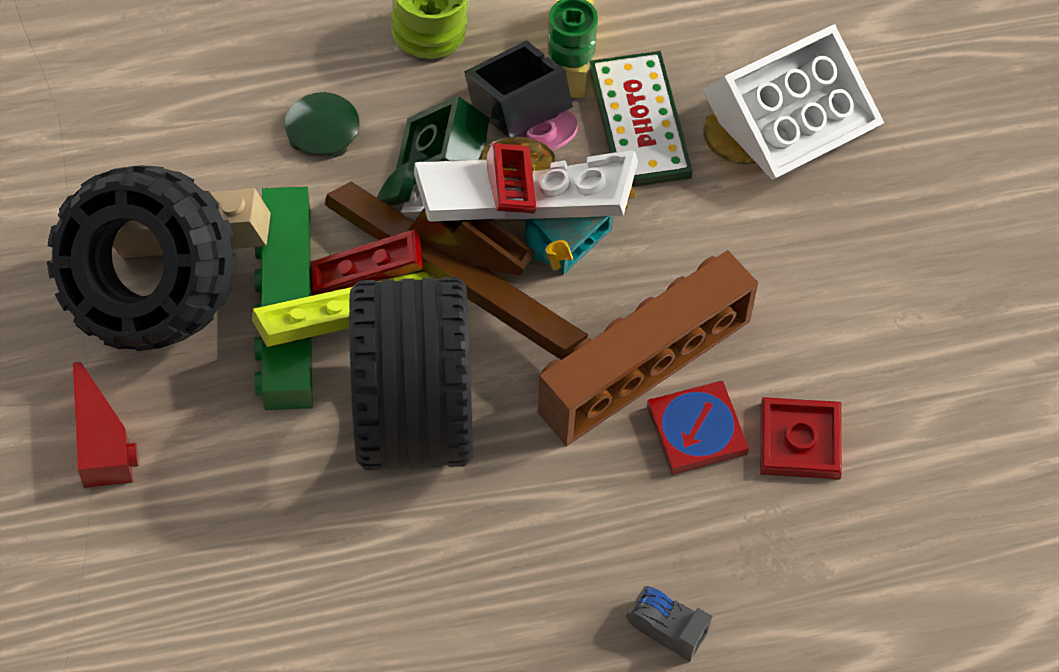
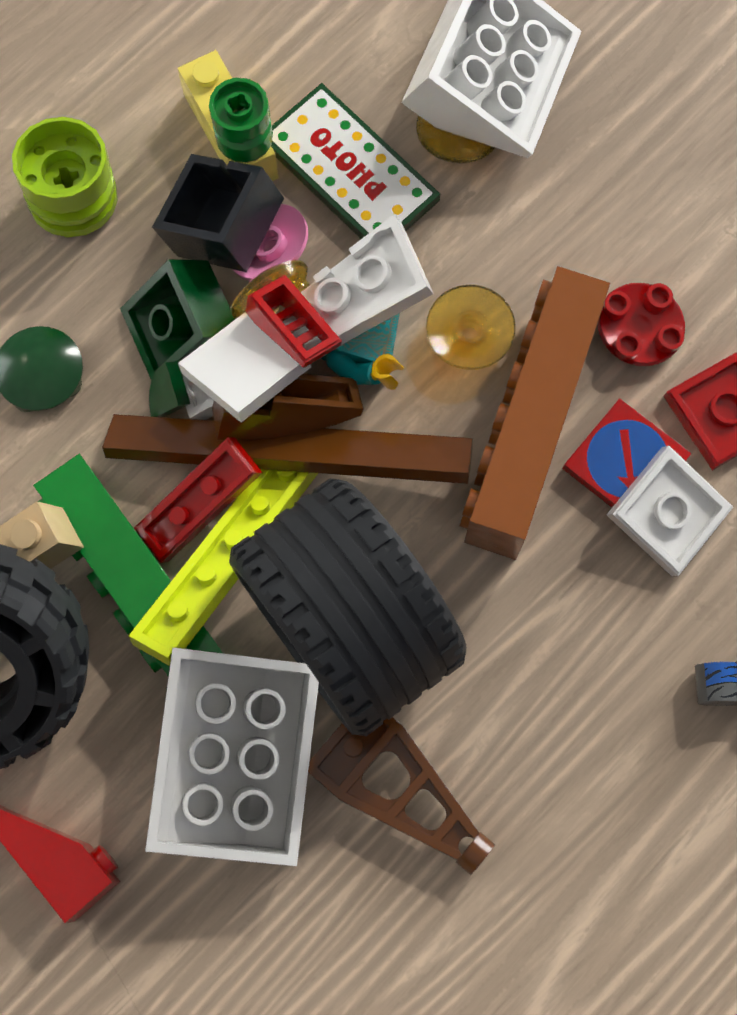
camera: 30 degrees left, 15 degrees up
(265, 433) = (233, 758): none -> white slope
(355, 493) = (347, 757): none -> reddish brown plate
(644, 255) = (470, 308): none -> clear yellow dish
(702, 475) = (670, 511): none -> white tile
(778, 341) = (641, 324): none -> red dish

